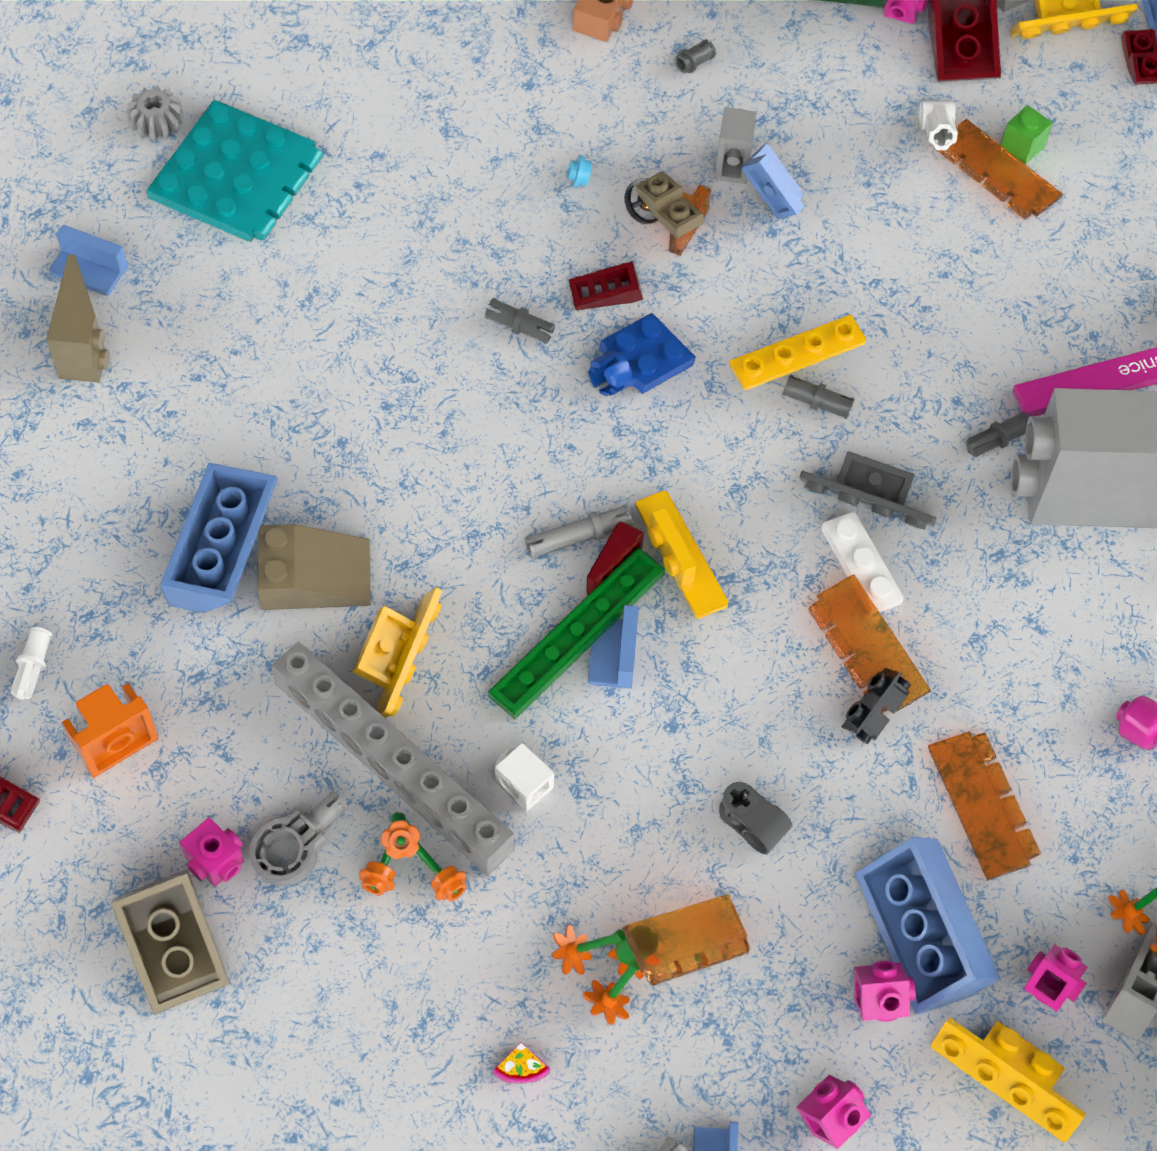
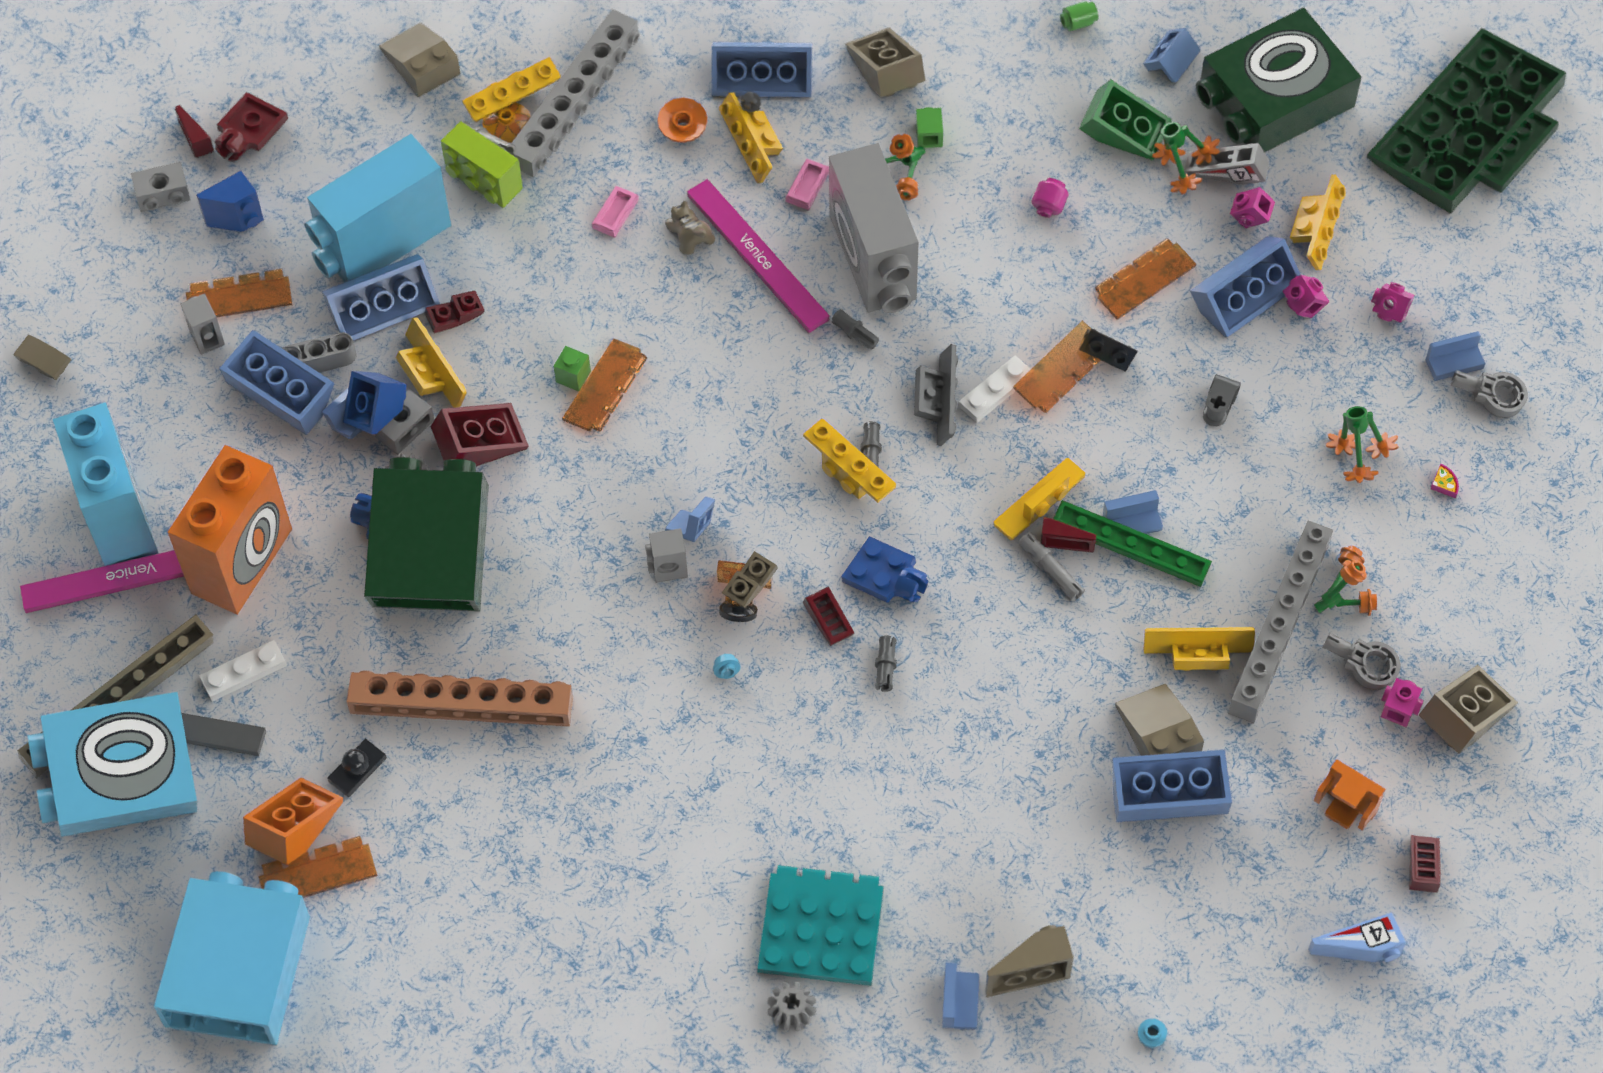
camera: 105 degrees left, 0 degrees up
(31, 663) = (1317, 883): white axle -> none
(523, 776) = (1255, 538): white brick -> none
(687, 939) = (1332, 398): clear orange windscreen -> none
(689, 59) = (577, 623): dark grey pin -> none
(939, 122) = (576, 431): white piece -> none

